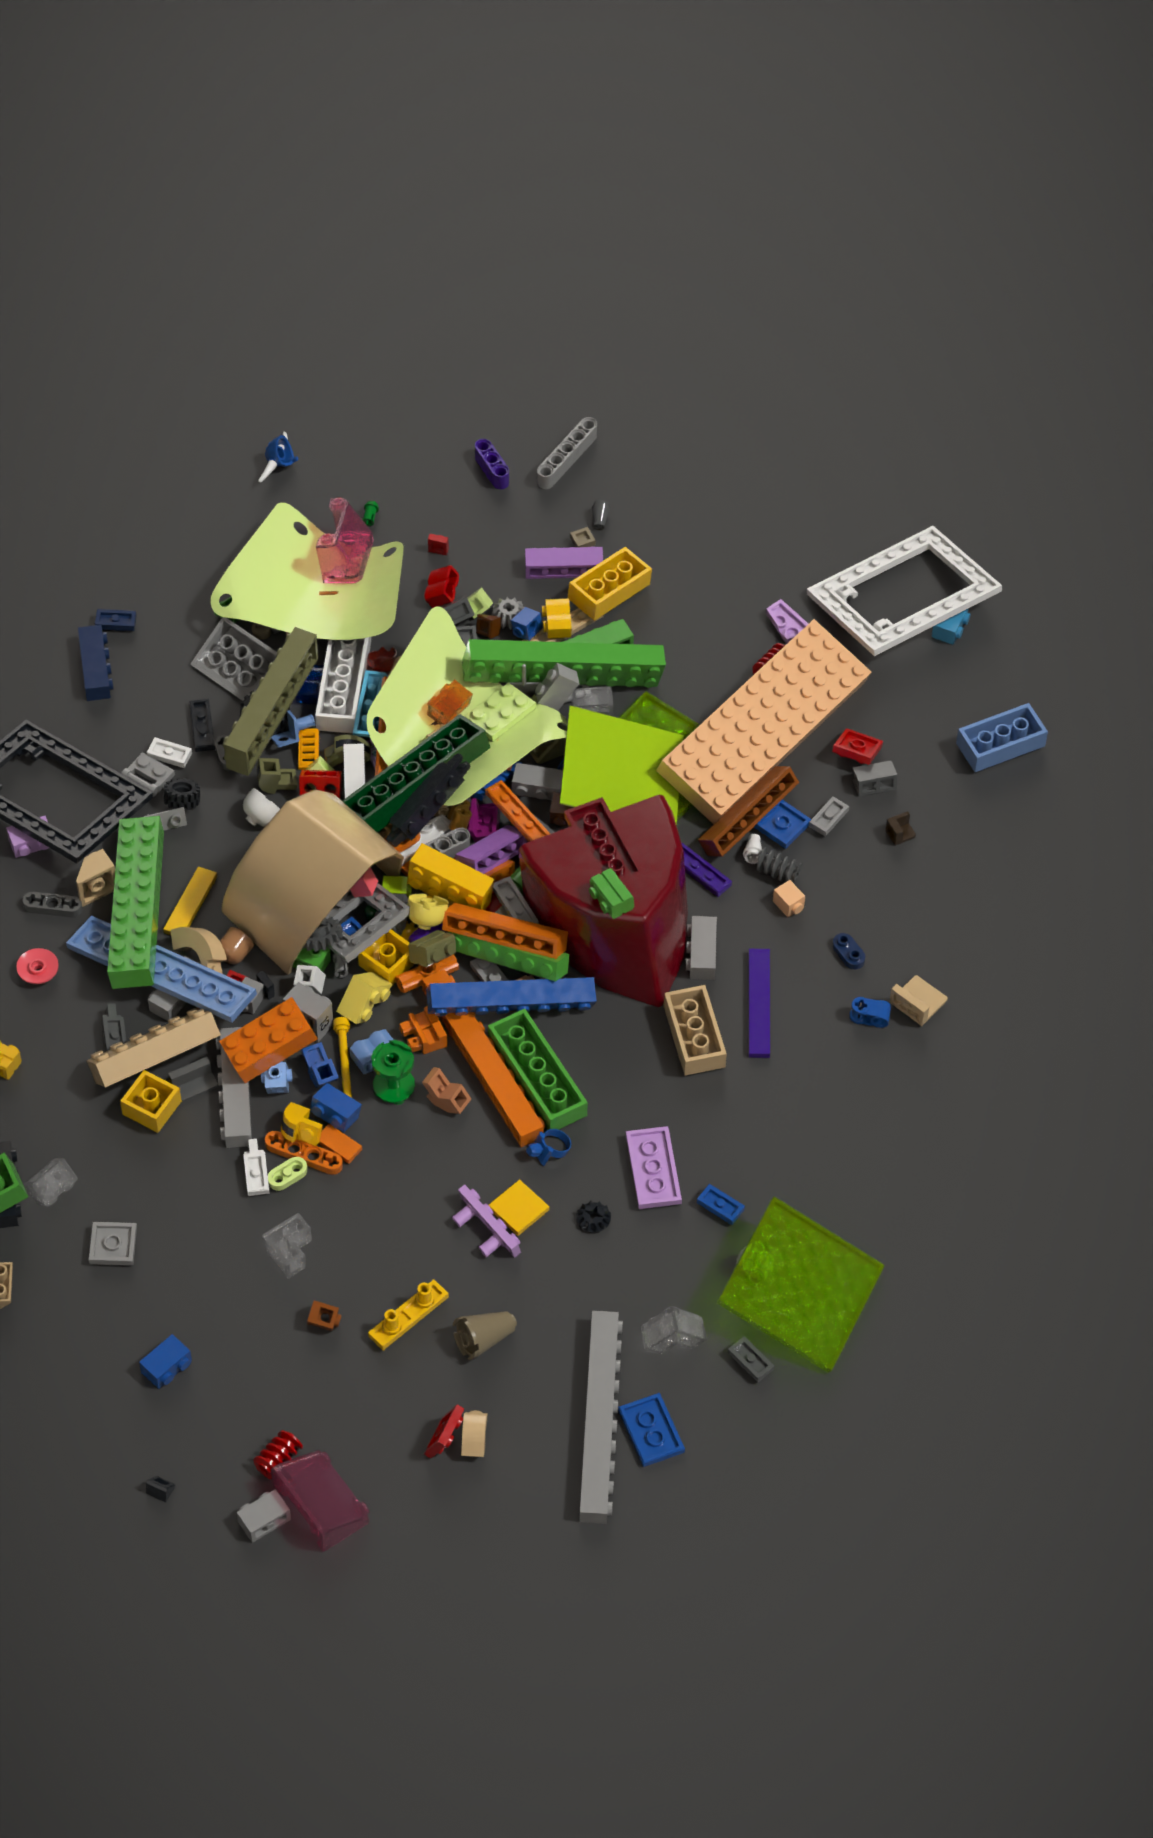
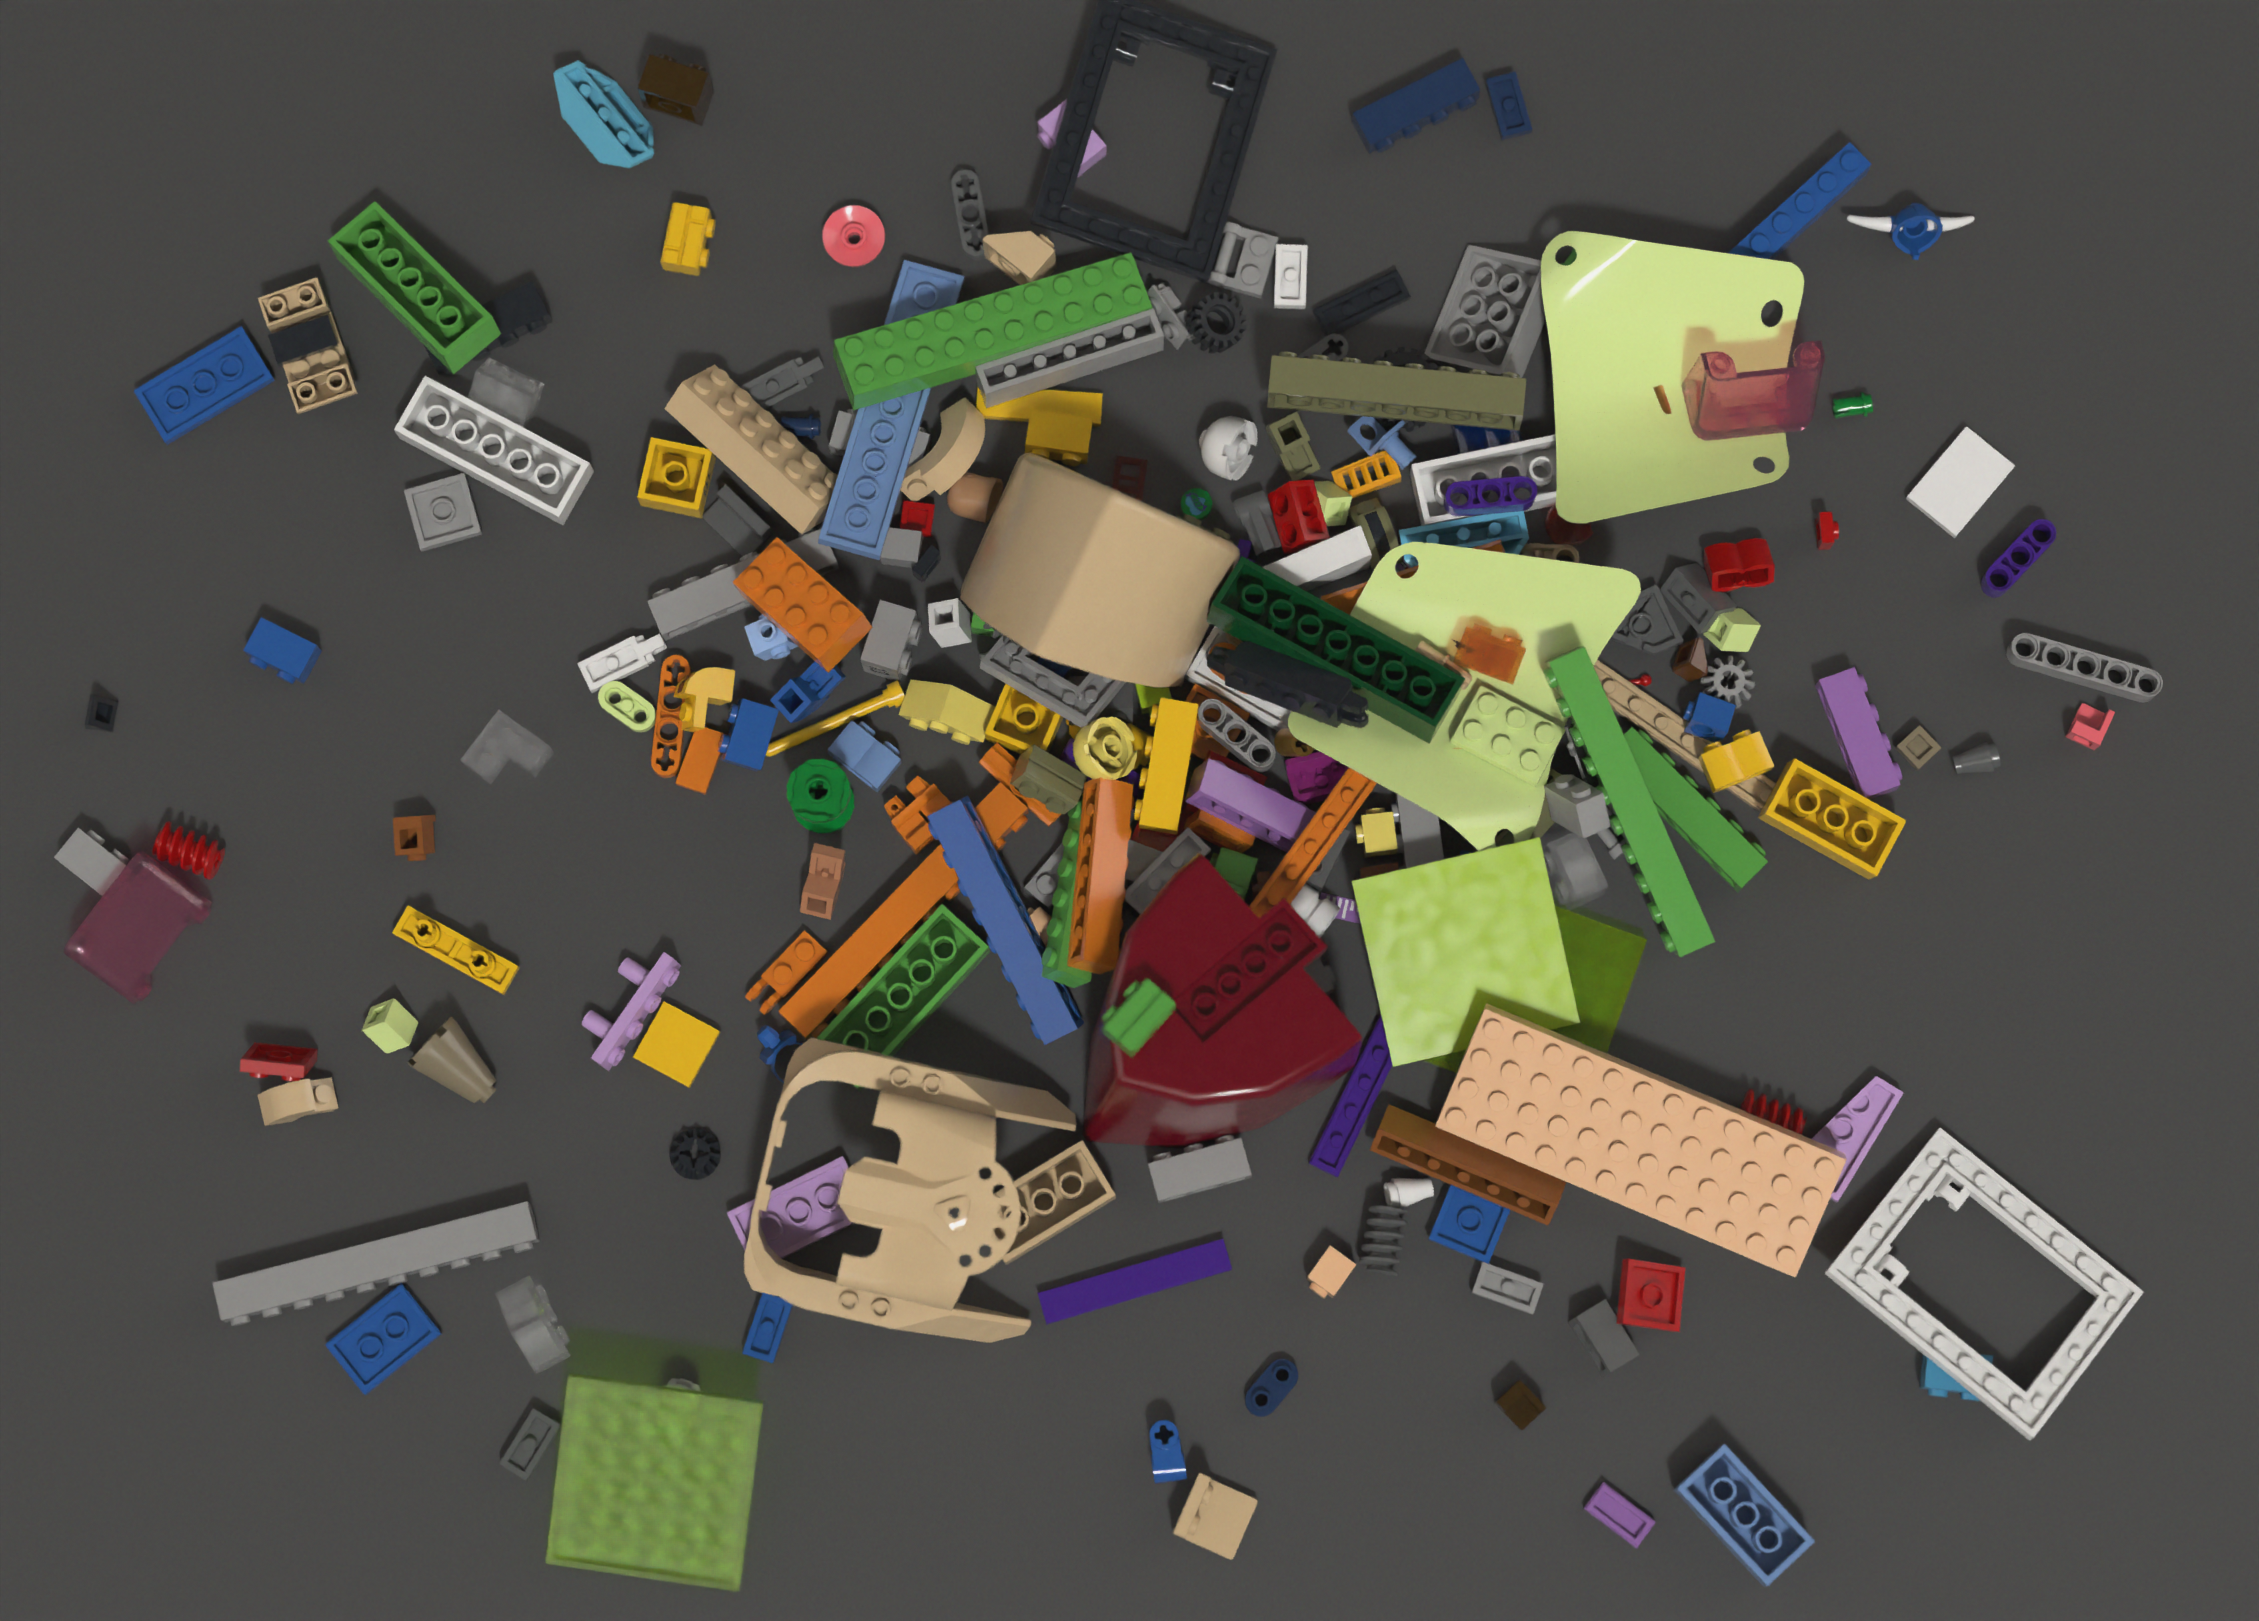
camera: 75 degrees right, 25 degrees up
(86, 1198) = (494, 450): none -> white brick
(147, 1023) = (803, 426): none -> dark blue pin
(170, 871) = (1069, 358): none -> light grey brick
(211, 894) = (1059, 437): none -> yellow brick
(241, 495) = (1805, 205): none -> blue brick
(353, 678) = (1502, 486): none -> dark purple beam
(435, 479) = (1960, 482): none -> white tile
(444, 1366) = (390, 1026): none -> yellowish green panel
(494, 1133) = (788, 970): none -> orange hinge
(533, 798) = (1377, 833): none -> light yellow brick
(602, 461) = (2089, 726): none -> coral panel
(676, 1059) = (945, 1140): none -> tan piece
(981, 802) = (1619, 1515): none -> medium lavender tile

